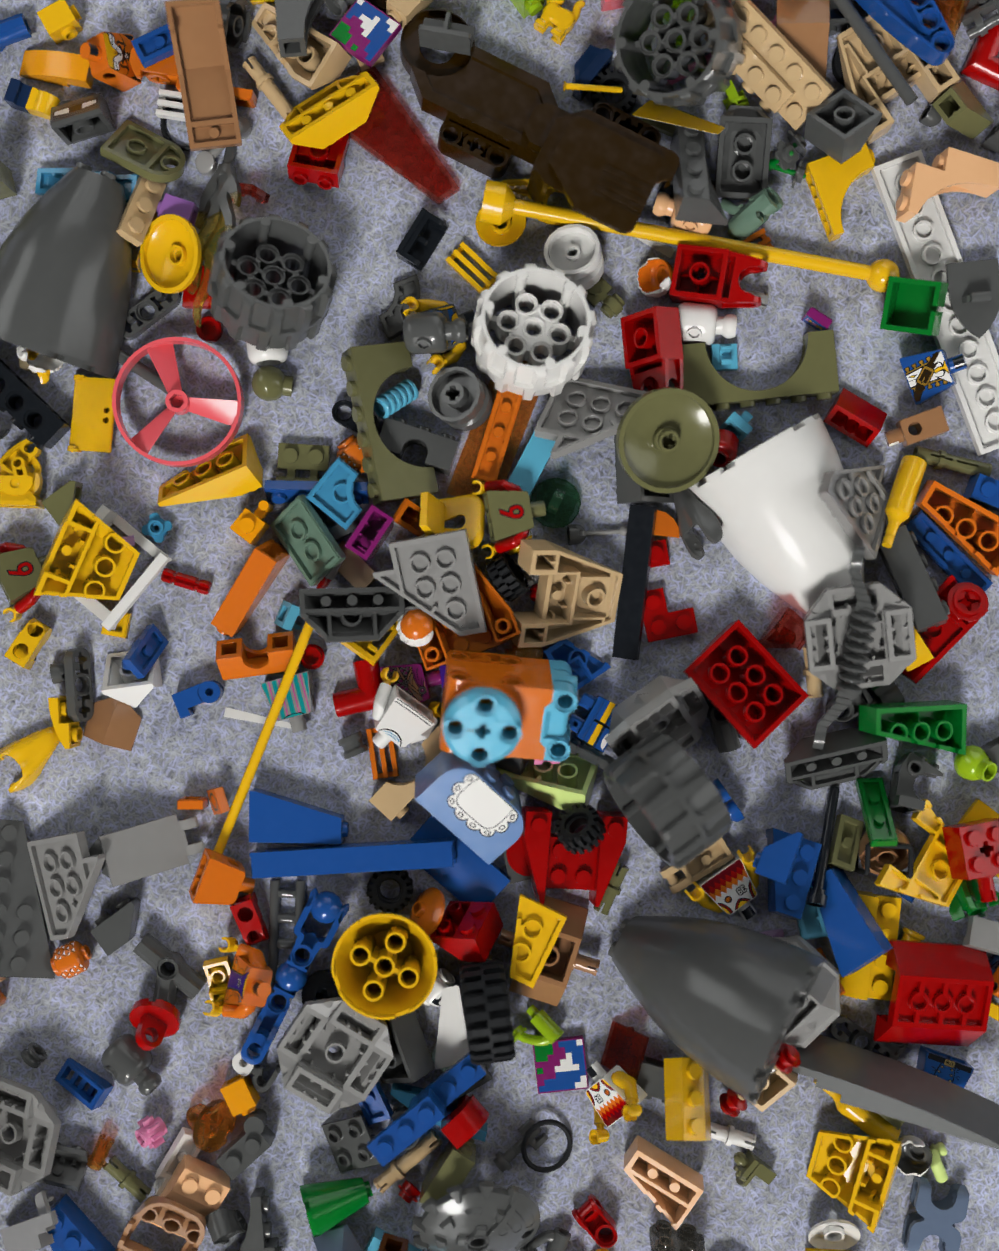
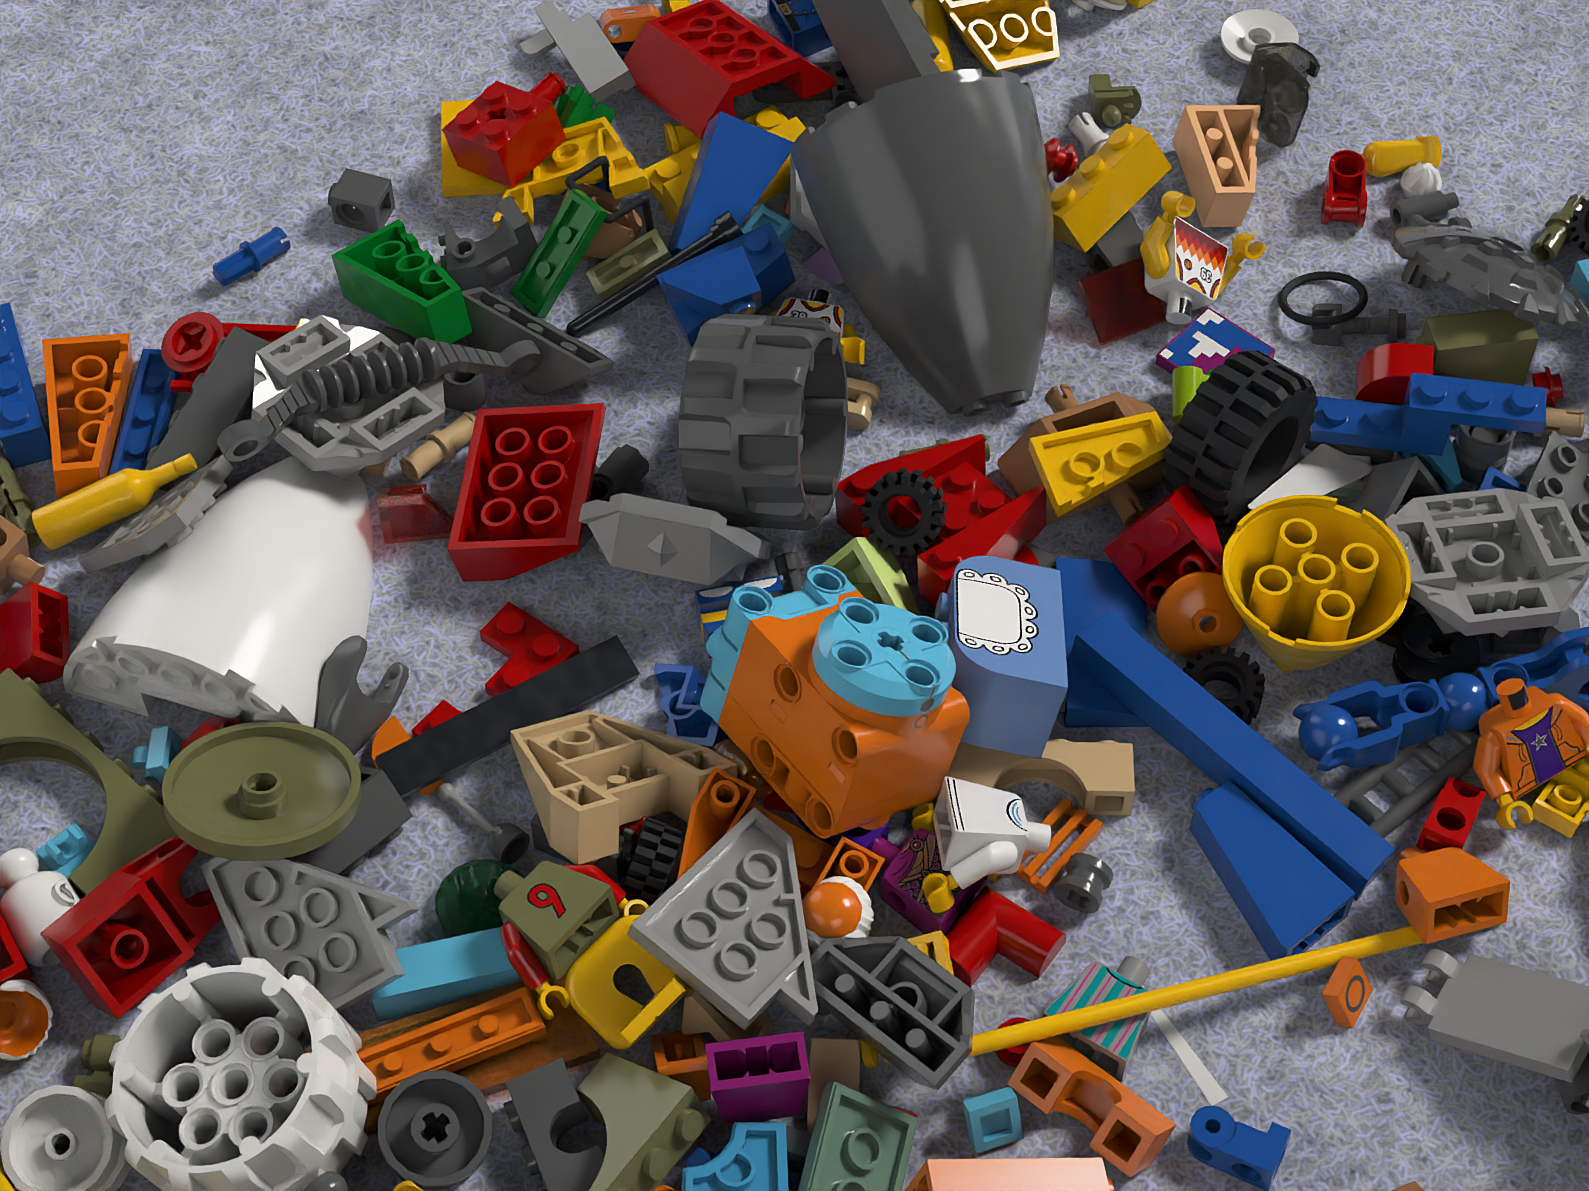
camera: 135 degrees left, 35 degrees down
(192, 803) = (1388, 1022): orange tile -> none
(974, 765) = (404, 204): lime piece -> none

